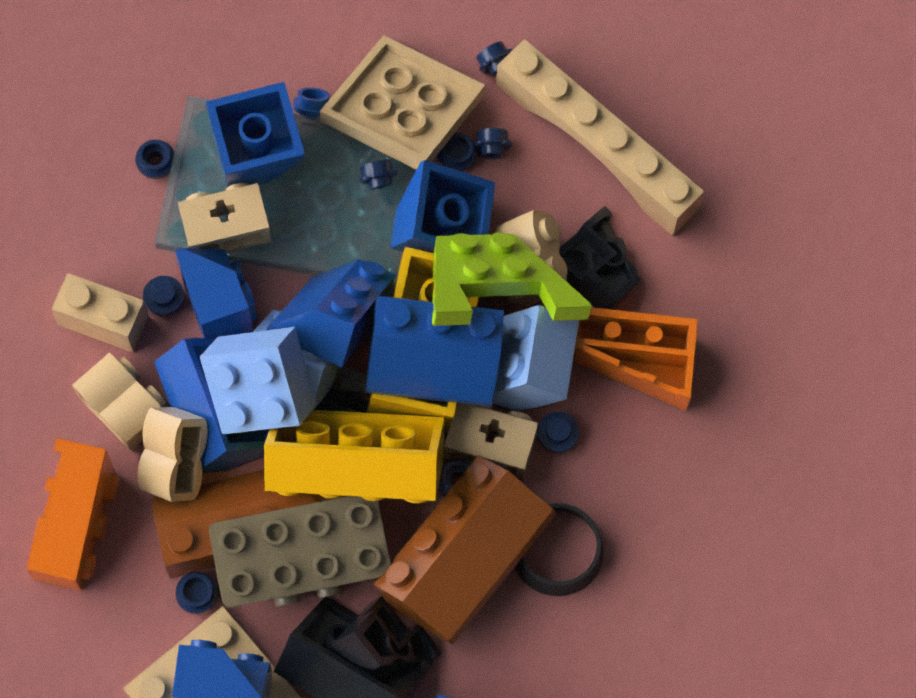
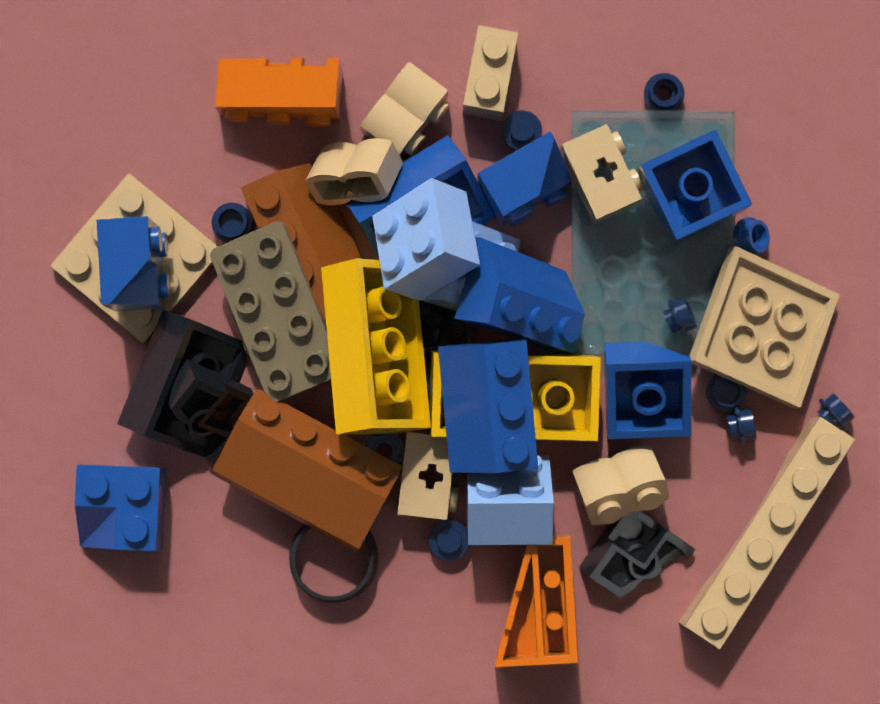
camera: 80 degrees right, 15 degrees up
(496, 267) = (588, 448): lime wing -> none

